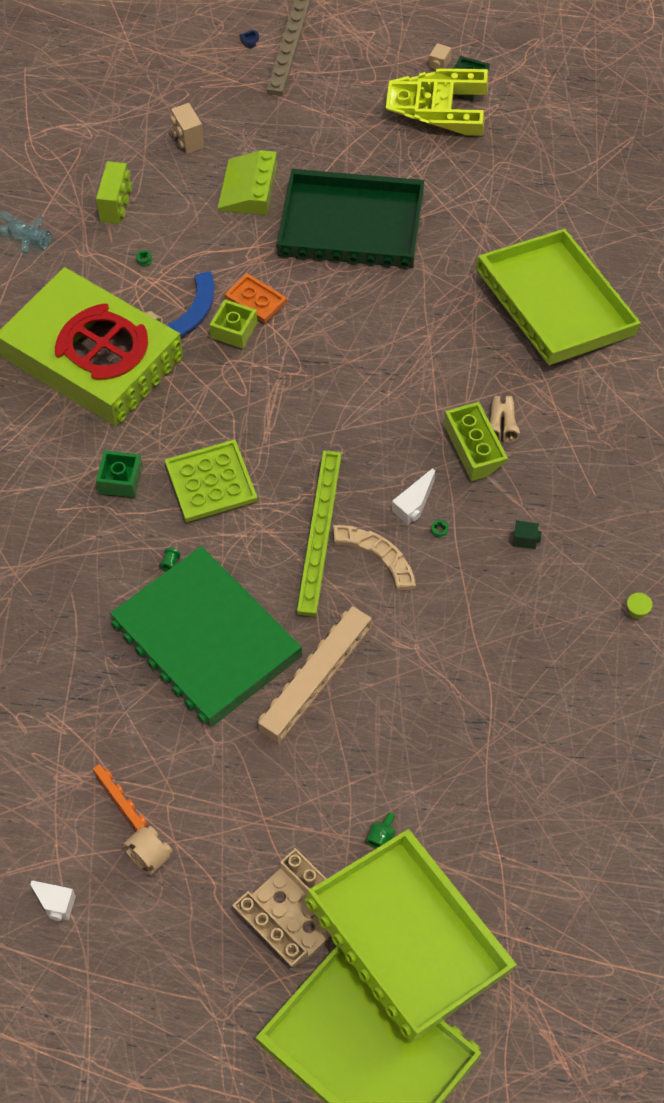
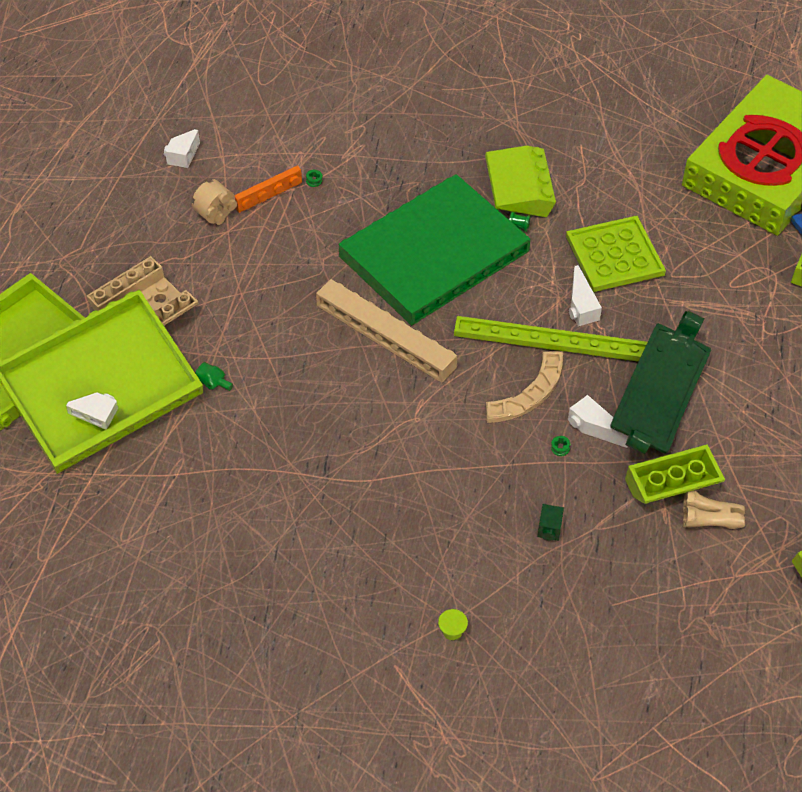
camera: 90 degrees right, 5 degrees down
(94, 755) = (314, 182): none -> green bush
(119, 474) = (616, 180): green brick -> none
(119, 554) = (521, 180): none -> lime slope
(273, 507) = (584, 303): none -> white slope
(377, 449) = (661, 385): none -> dark green panel
(454, 924) = (94, 408): none -> white slope

